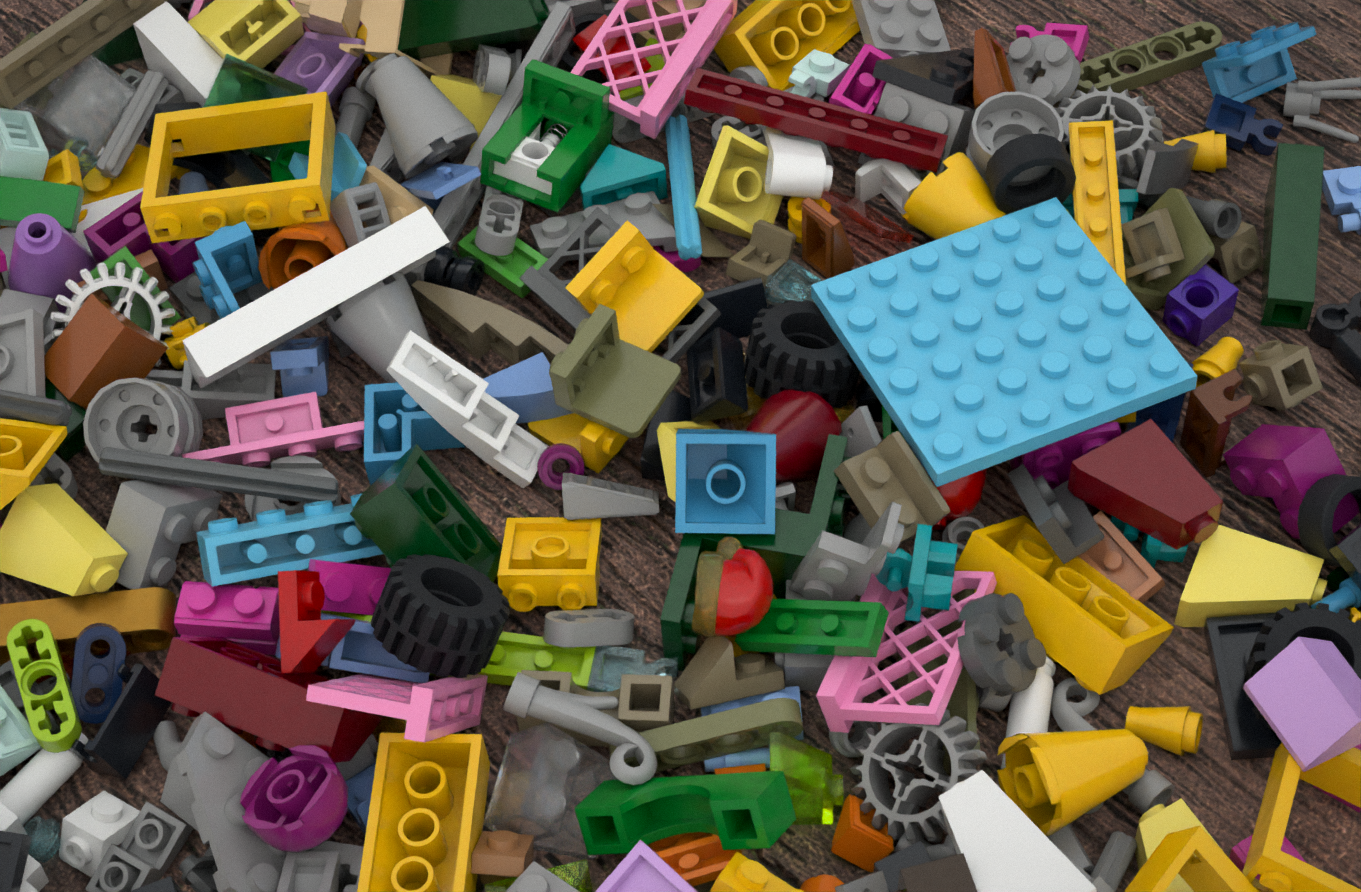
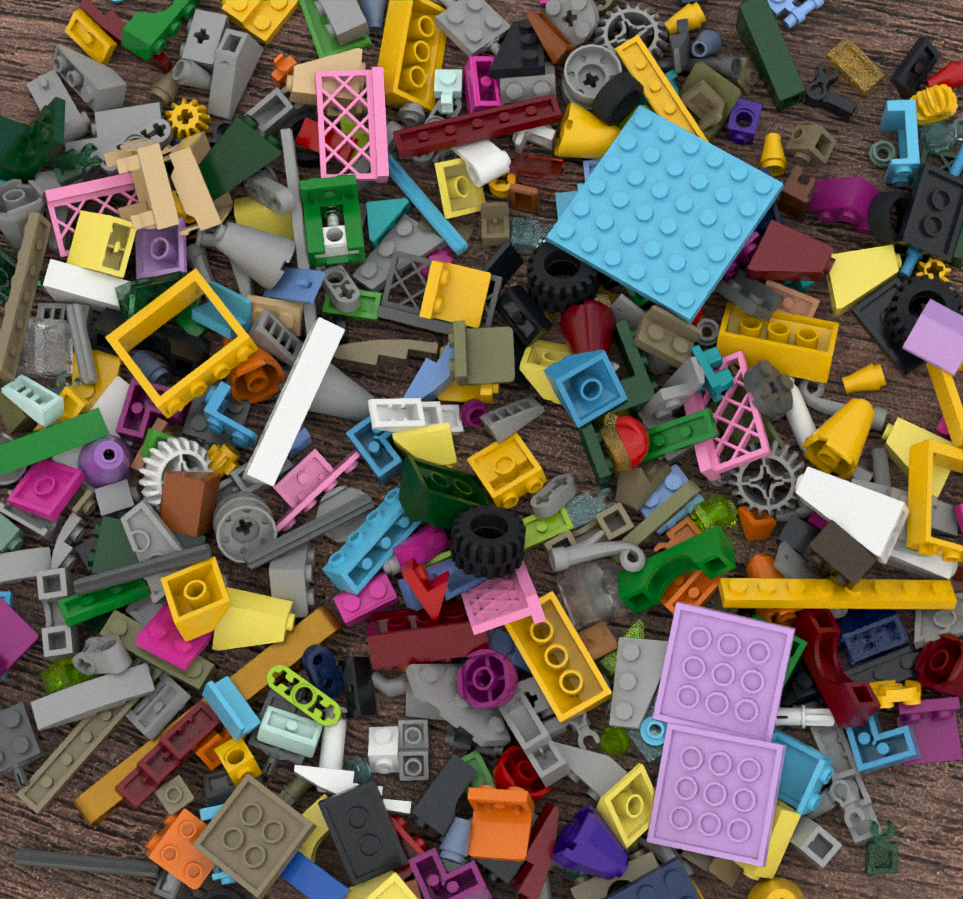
camera: 25 degrees left, 20 degrees up
(471, 461) = (428, 443): none -> light yellow slope
(1204, 183) = (710, 41): none -> sand blue cone

